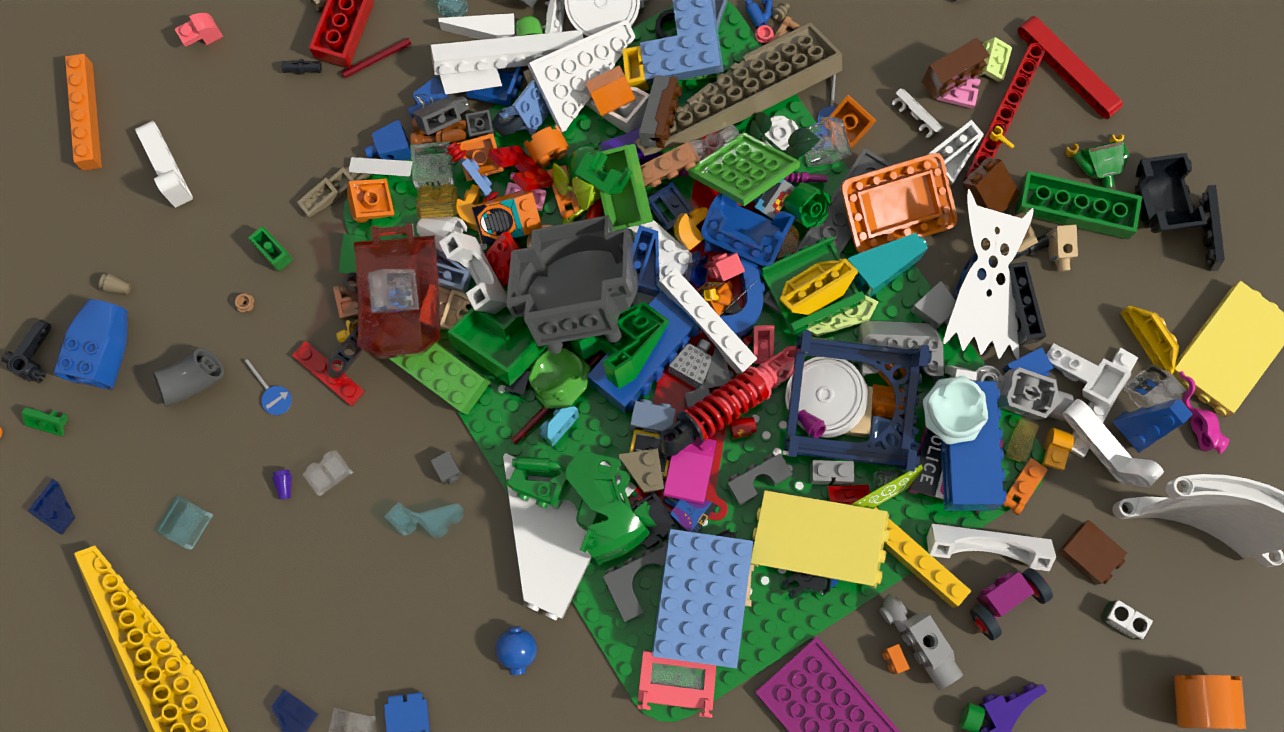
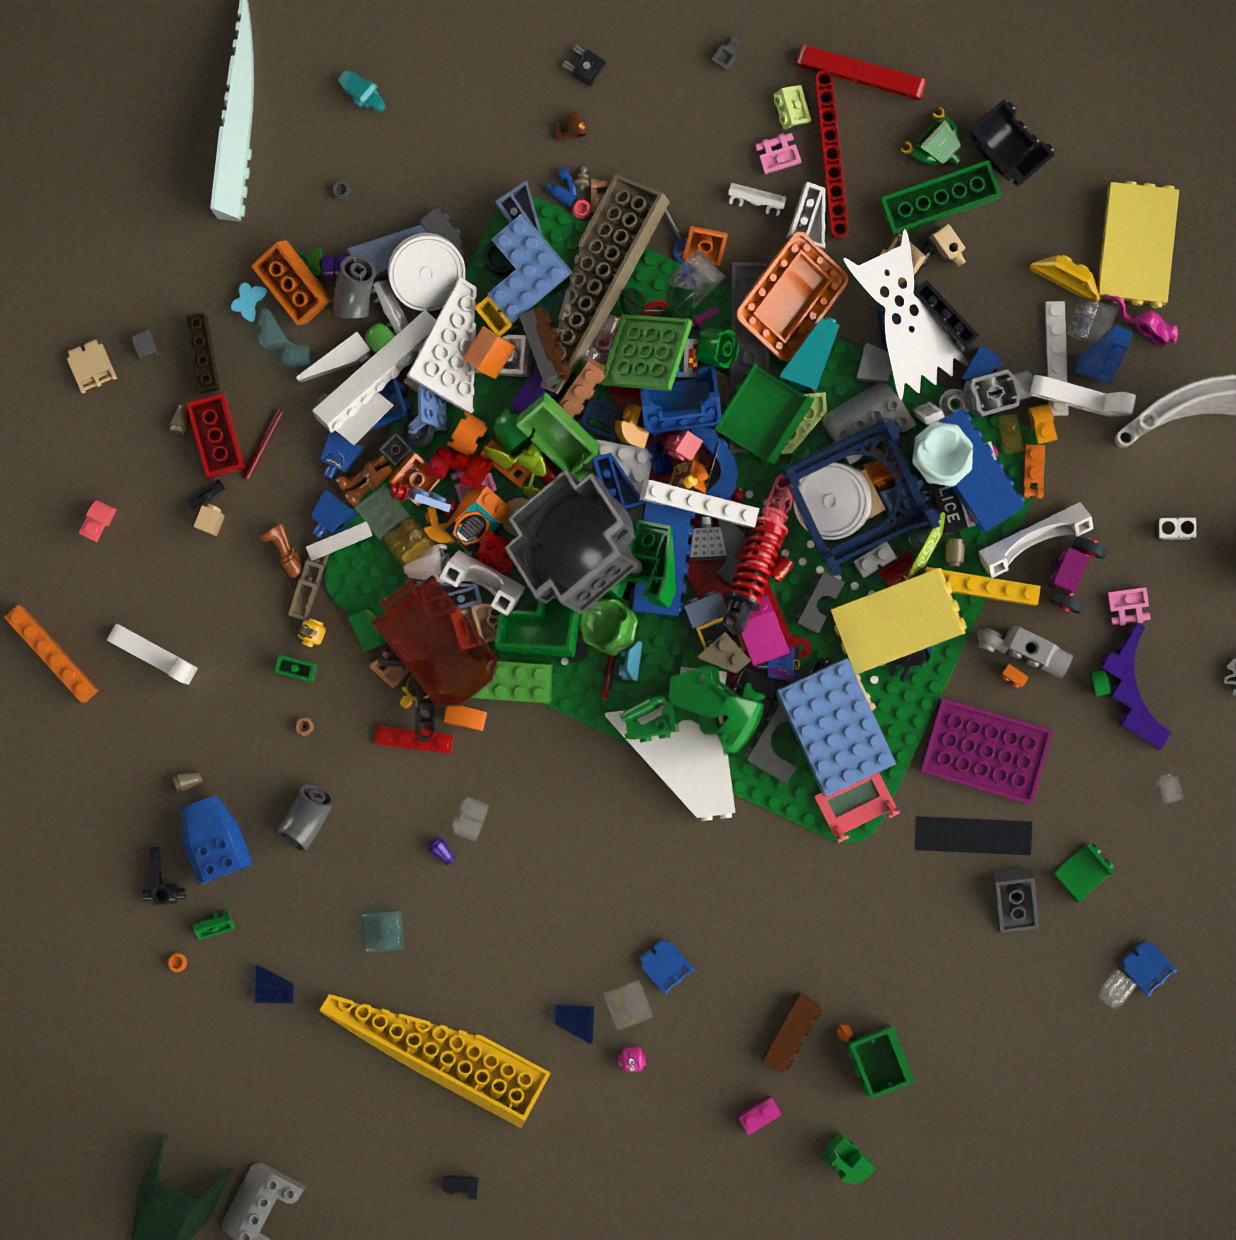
camera: 25 degrees left, 10 degrees up
(275, 399) = (386, 787): blue piece -> none
(287, 84) = (209, 520): none -> tan brick
(305, 228) = (311, 632): none -> yellow head
(331, 155) = (287, 556): none -> dark orange piece
(369, 199) = (349, 574): orange slope -> none
(383, 381) = (465, 717): none -> orange slope
(393, 290) = (430, 642): clear slope -> none
(434, 521) = (583, 803): clear light blue arch -> none
(440, 114) = (360, 465): dark grey hinge -> none
(446, 468) = (564, 754): dark grey brick -> none
(516, 650) = (715, 859): blue brick -> none
(591, 171) = (539, 443): green panel -> none
(763, 343) = (754, 489): coral slope -> none
(780, 131) = (655, 292): white tile -> none
(812, 424) = (836, 533): magenta cone -> none
(818, 286) = (768, 415): yellow wedge -> none
(908, 512) = (954, 552): none -> dark tan brick
(955, 69) = (767, 144): reddish brown brick -> none
(992, 185) = (860, 231): reddish brown brick -> none
(994, 137) = (842, 180): yellow hand -> none
(1044, 657) = (1126, 600): none -> bright pink plate
(1093, 553) = (1119, 491): reddish brown brick -> none
(1101, 381) = (1046, 343): white plate -> none
(1213, 236) = (1066, 157): black plate -> none

